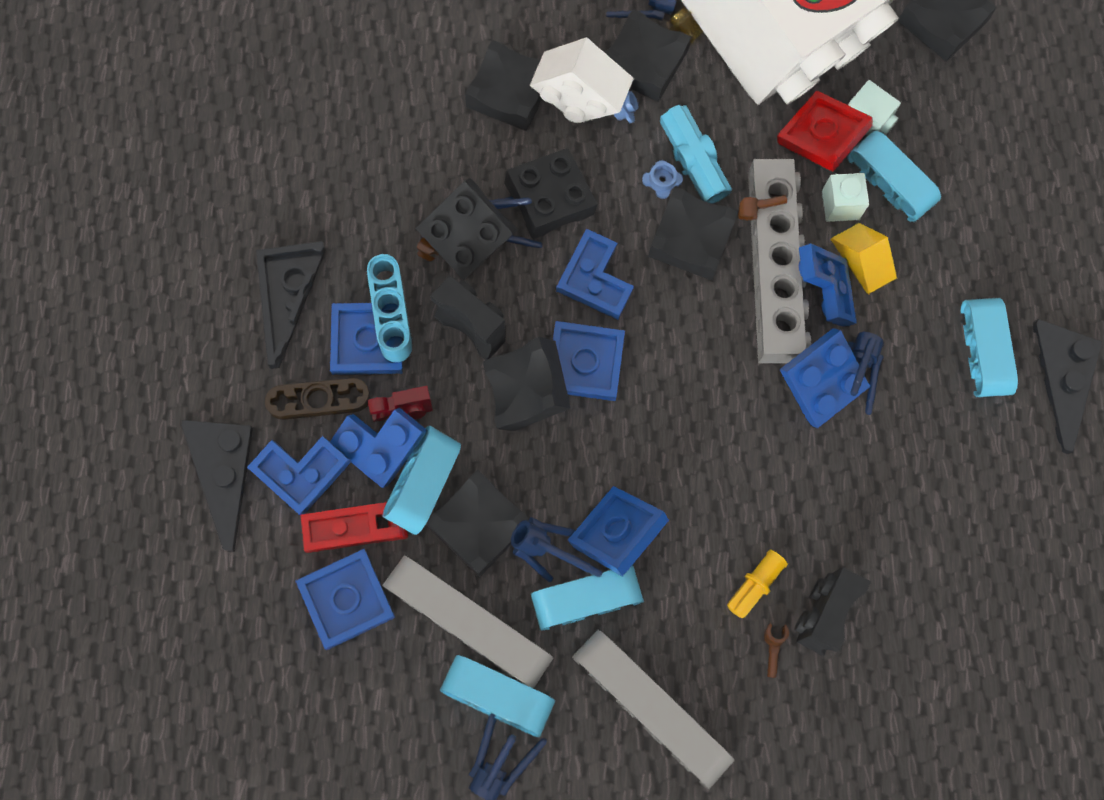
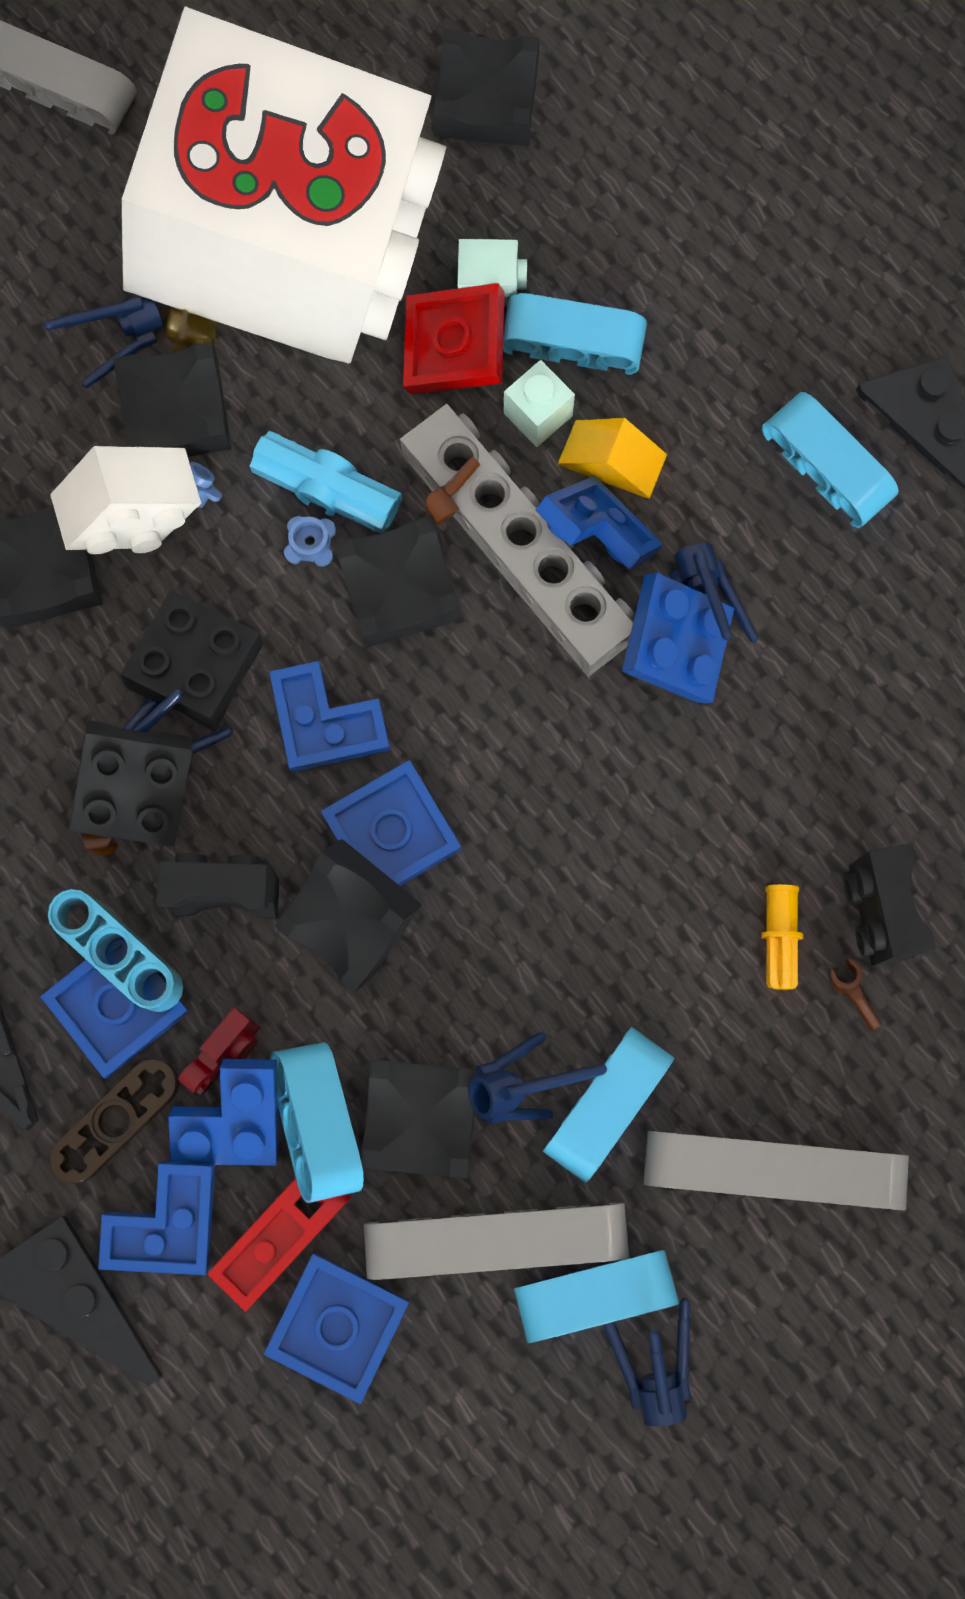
camera: 30 degrees left, 5 degrees up
(618, 530) = (585, 1001): blue plate -> none

